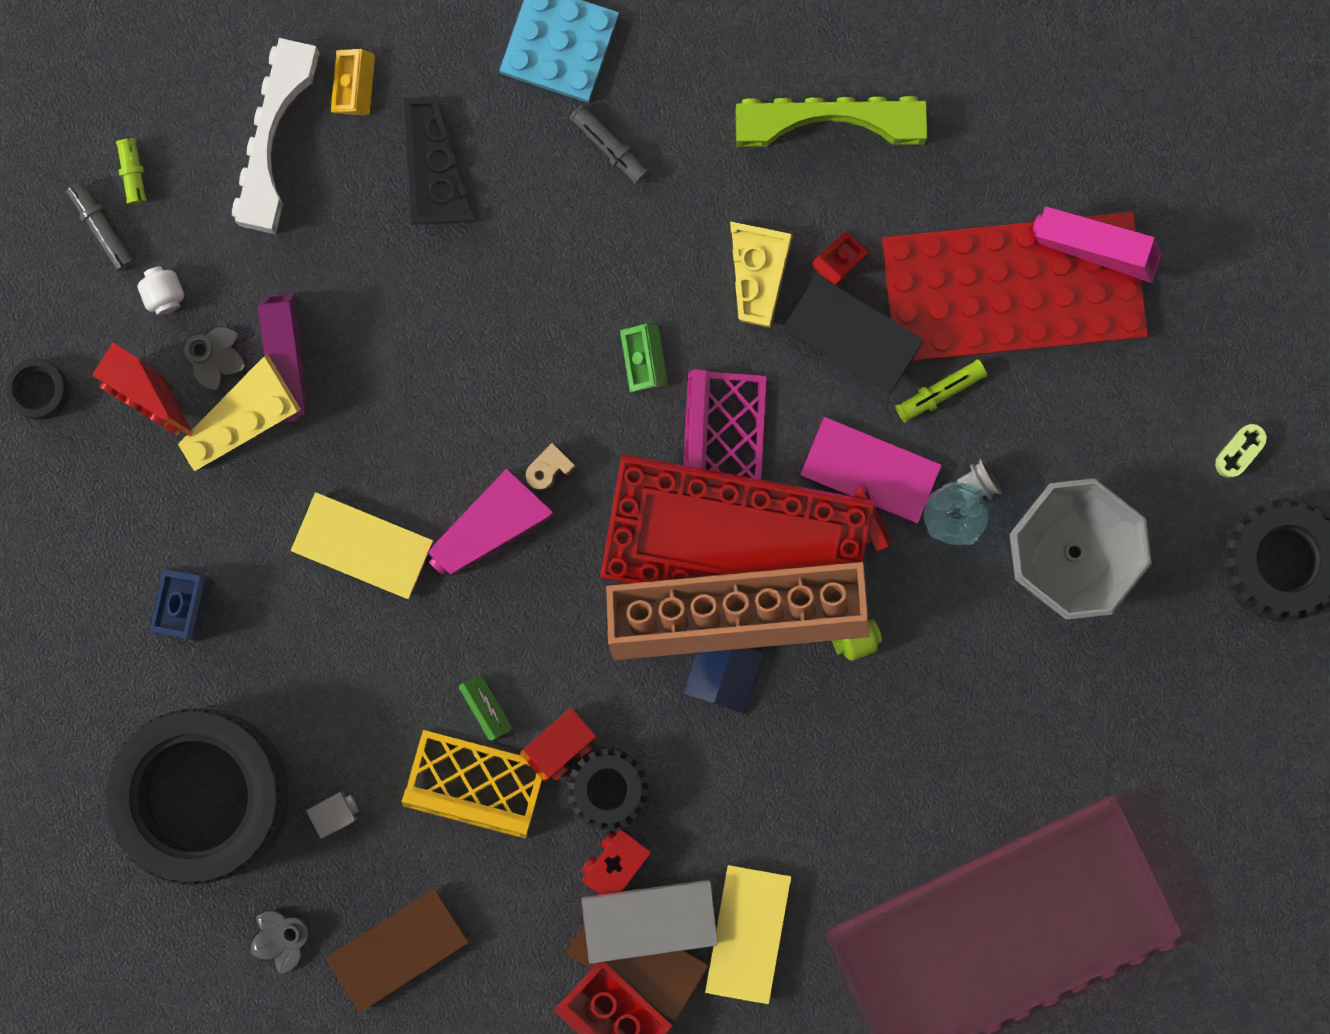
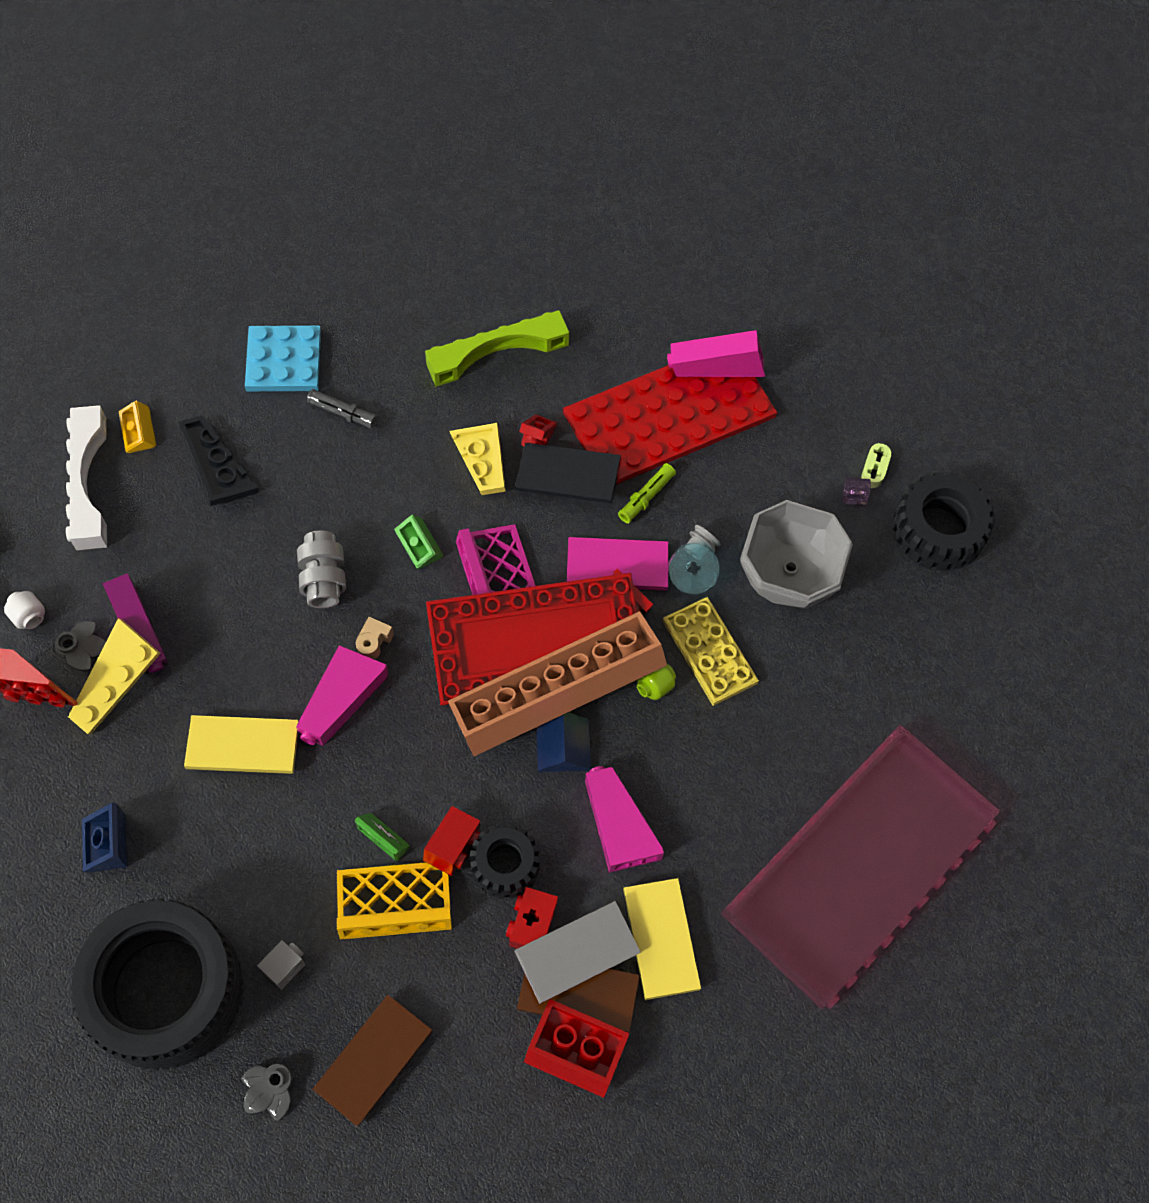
camera: 25 degrees left, 20 degrees down
(519, 348) = (321, 563): none -> light grey piece
(751, 796) = (621, 827): none -> dark pink slope
(936, 619) = (710, 651): none -> light yellow tile
(1198, 478) = (856, 491): none -> clear purple tile

